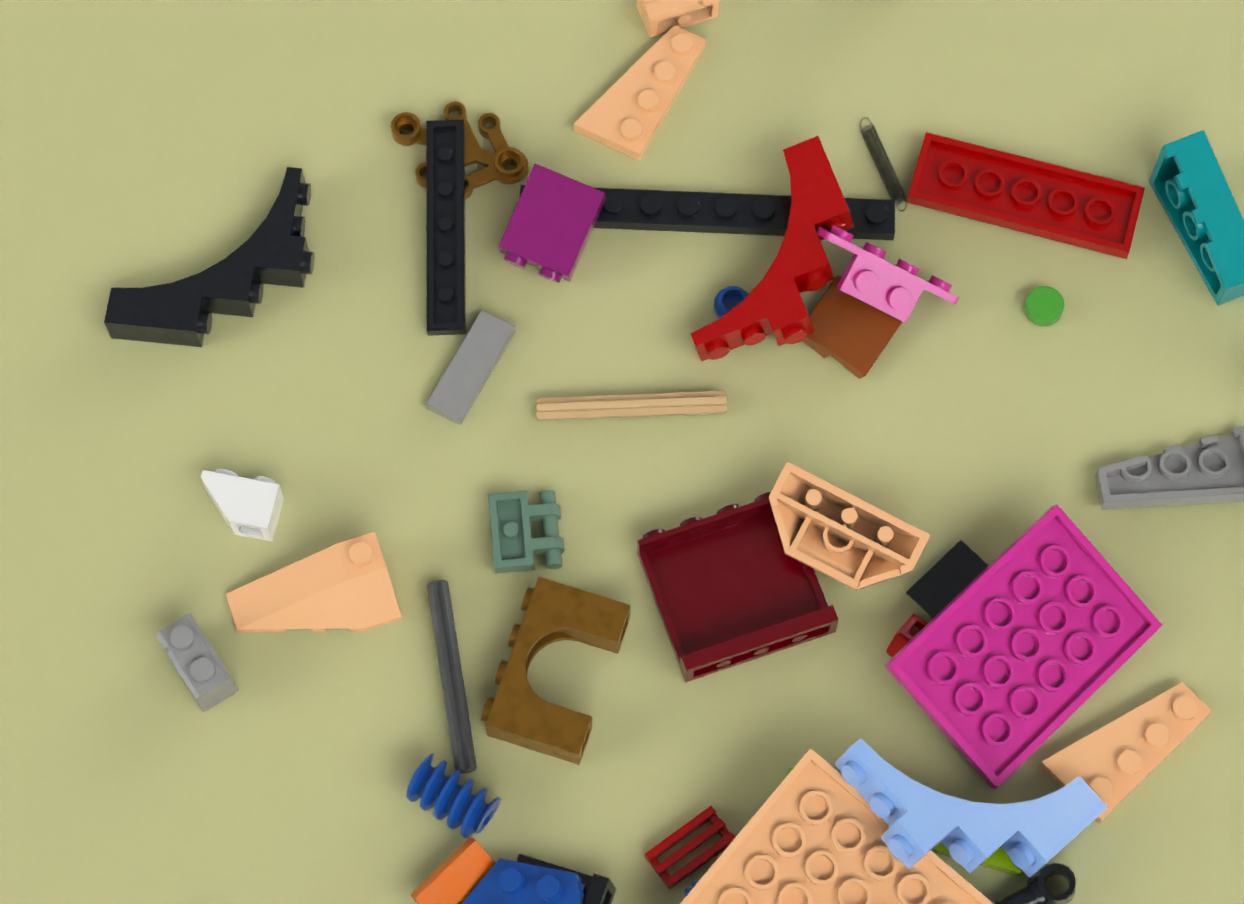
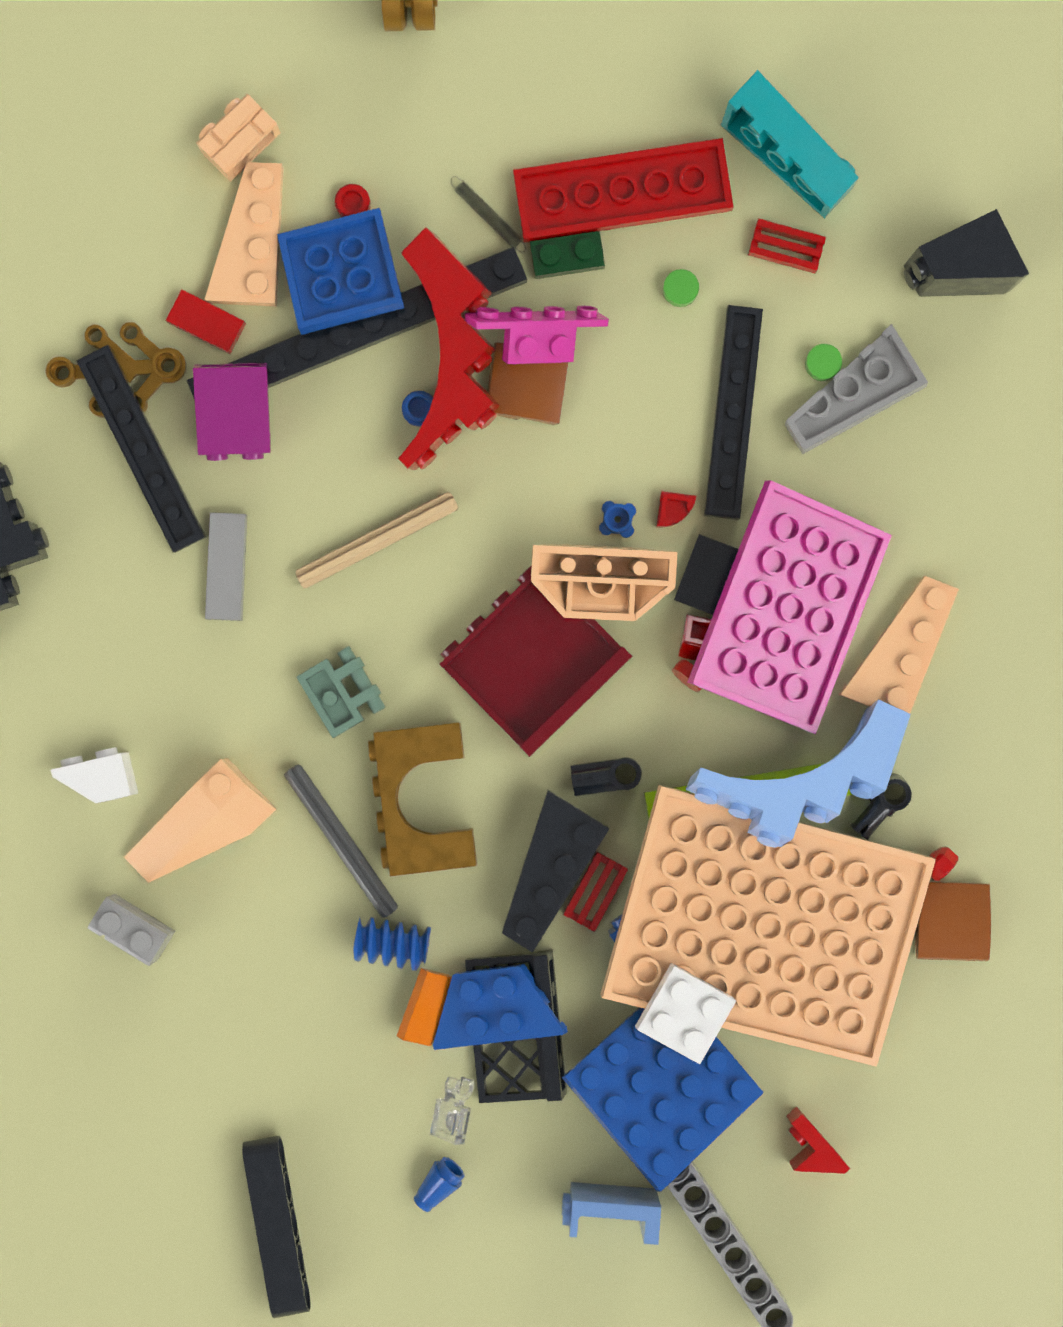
camera: 25 degrees left, 20 degrees up
(565, 144) = (205, 321): none -> red tile
(657, 795) = (554, 862): none -> black wedge
(716, 150) = (340, 271): none -> blue plate
(751, 731) = (601, 776): none -> black piece
(757, 101) = (352, 200): none -> red tile
(885, 678) = (682, 671): none -> red tile
(887, 480) = (612, 510): none -> blue plate
(944, 230) = (567, 255): none -> dark green plate
(946, 506) = (673, 508): none -> red tile
(1046, 443) = (733, 412): none -> black tile
(1159, 433) = (823, 362): none -> bright green tile
(1170, 306) = (788, 232): none -> red tile

